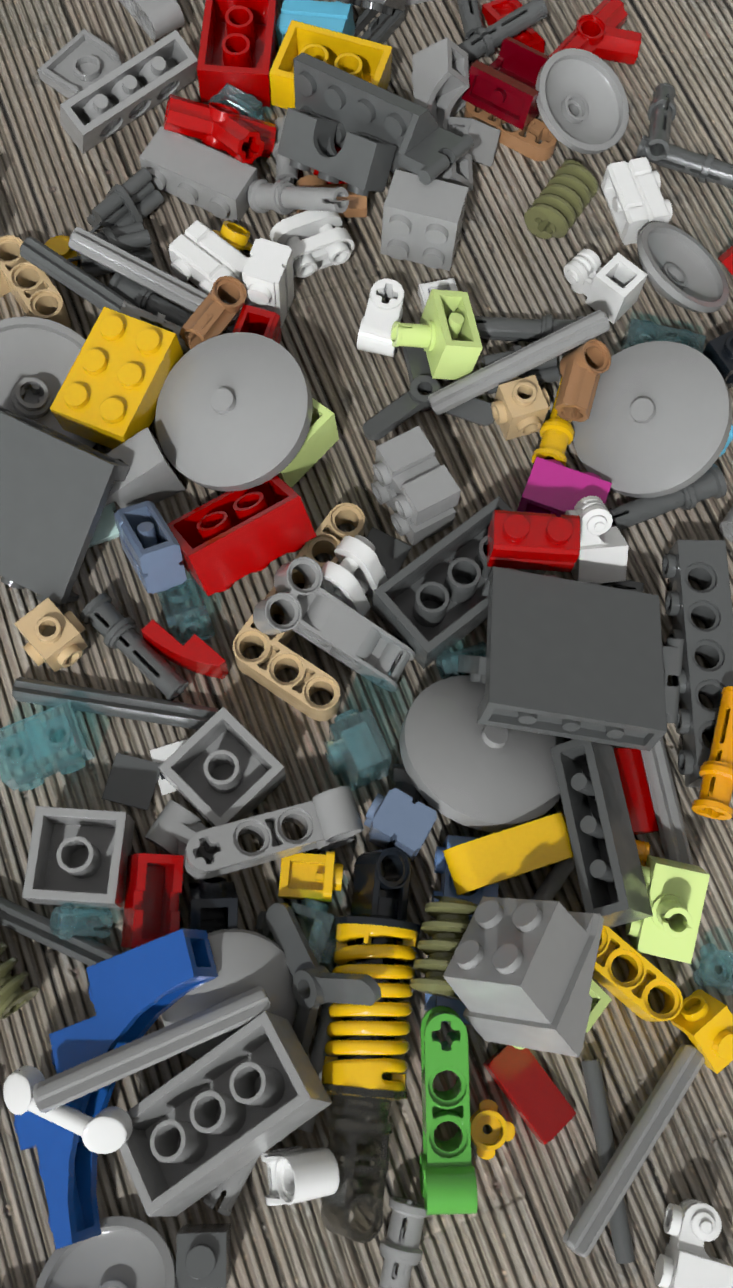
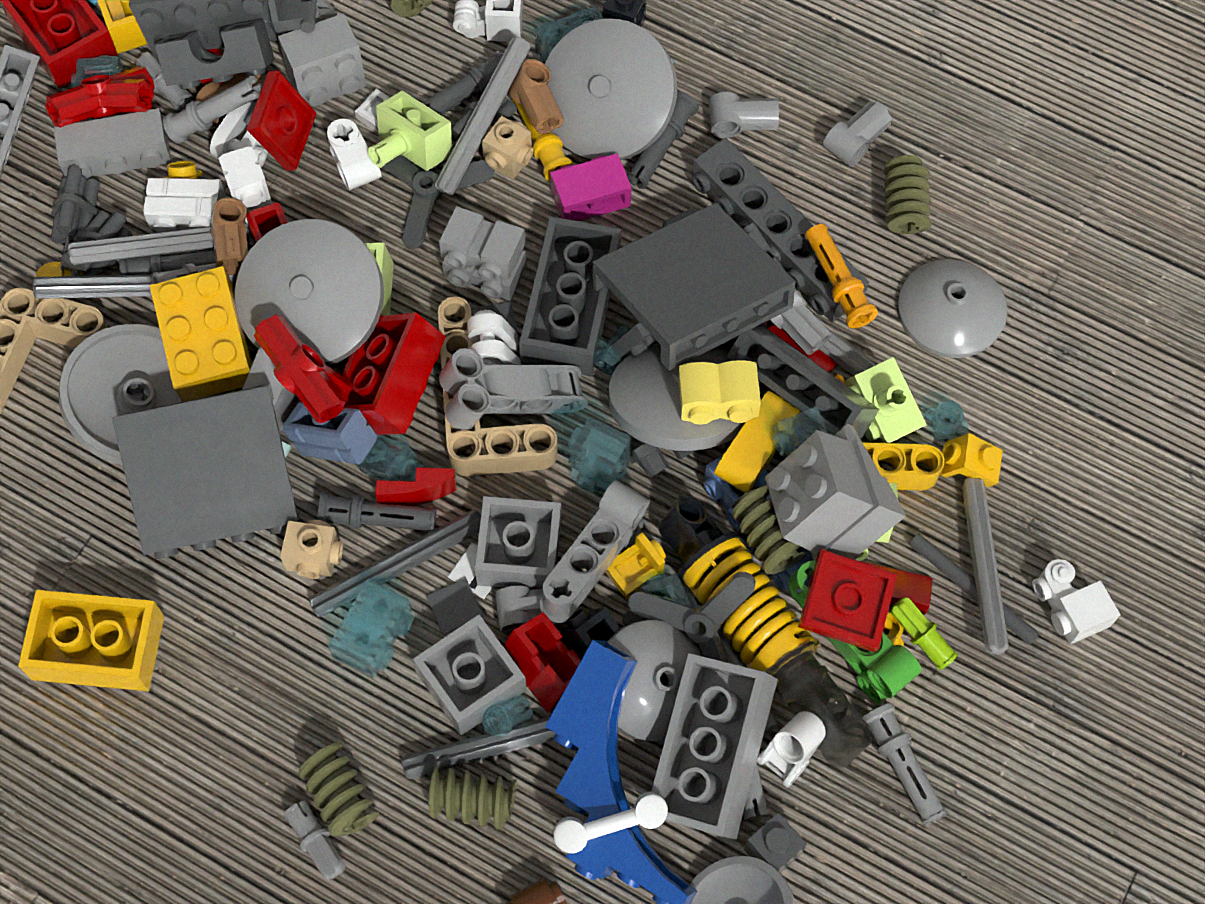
camera: 35 degrees left, 5 degrees down
(150, 1049) = (635, 735): light grey axle -> none
(158, 477) = (302, 370): none -> red piece
(345, 247) = (281, 120): none -> red tile
(399, 822) = (668, 478): sand blue brick -> none
(459, 1086) = (848, 600): none -> red tile
(506, 780) = (719, 391): none -> light yellow brick
(518, 1166) = (923, 633): none -> lime axle
(533, 541) = (602, 227): red brick -> none
(552, 881) = (795, 430): none -> clear light blue bracket
(602, 547) = (641, 204): white brick -> none
(652, 771) = (803, 325): none -> light grey piece

